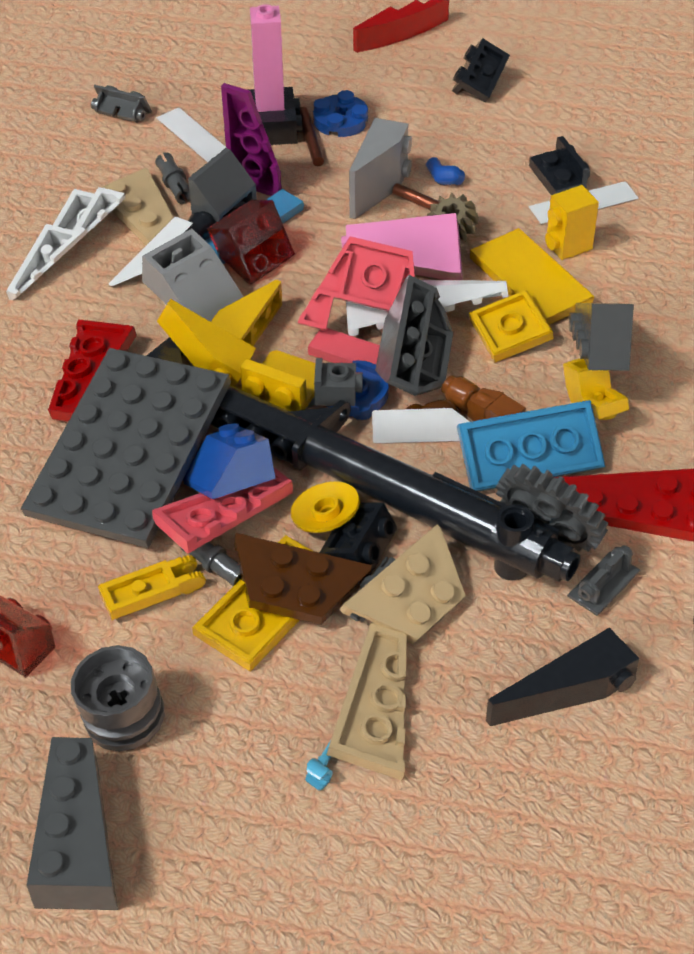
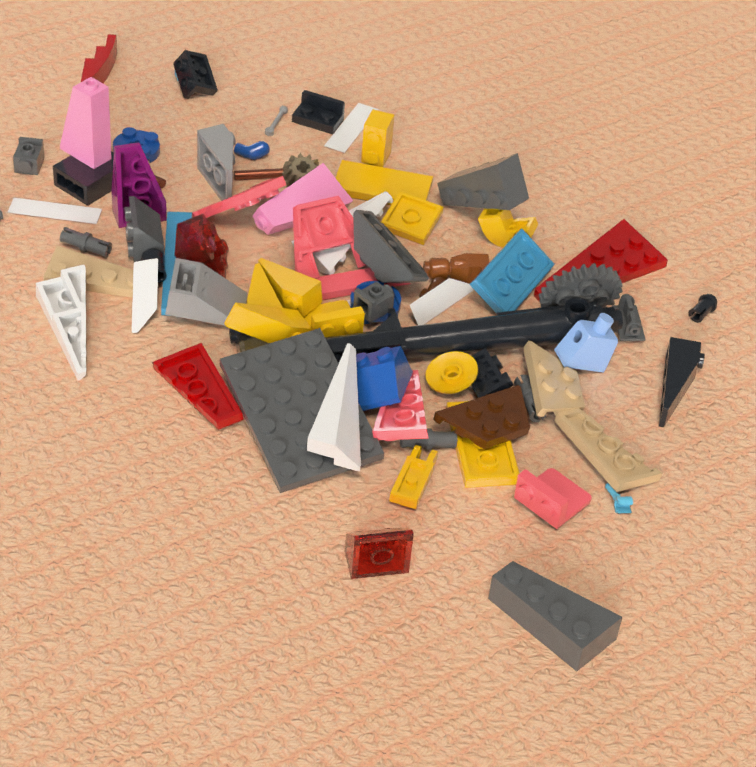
camera: 50 degrees left, 5 degrees down
(116, 478) = (337, 422): none -> white wedge
(118, 698) = (492, 534): flat silver wheel -> none
(232, 71) = (28, 156): none -> dark grey brick
(249, 707) = (551, 496): none -> coral bracket
(279, 325) = (293, 288): none -> yellow slope
(368, 210) = (246, 198): none -> coral wing
(491, 163) = (269, 131): none -> light grey hinge
(494, 573) = (588, 345): none -> light blue torso

